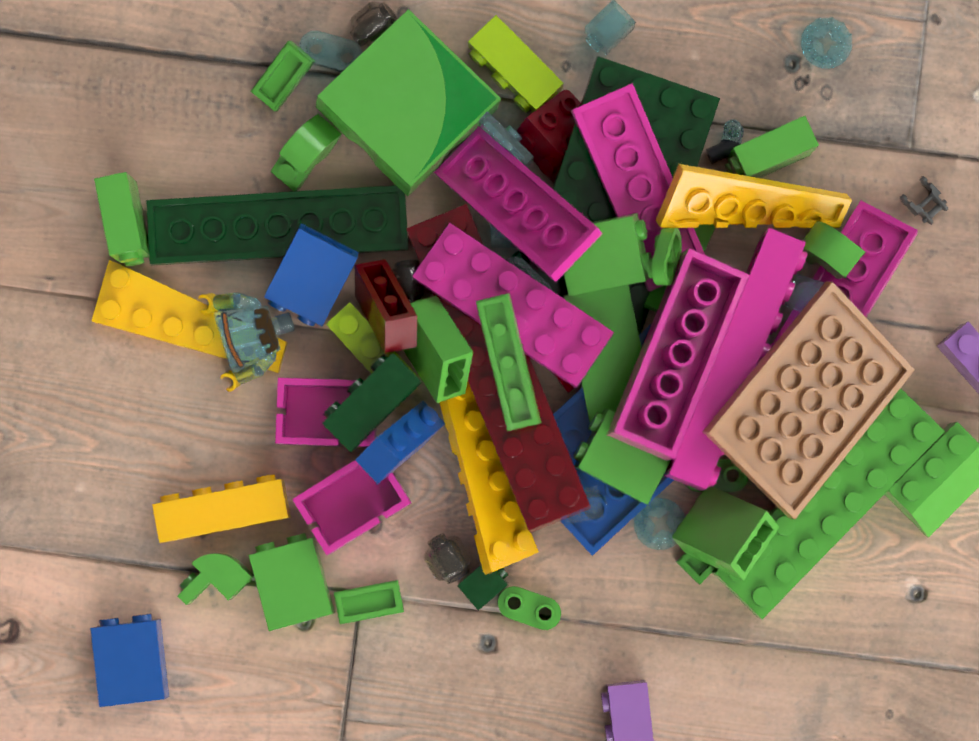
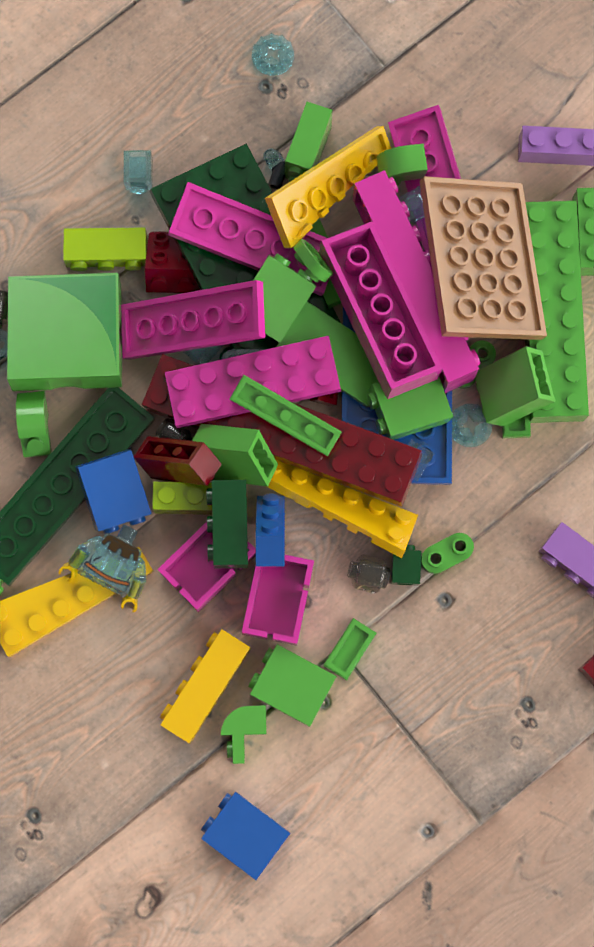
camera: 50 degrees left, 5 degrees down
(506, 137) = (143, 292): clear light blue plate -> none
(933, 195) = (425, 77): dark grey piece -> none

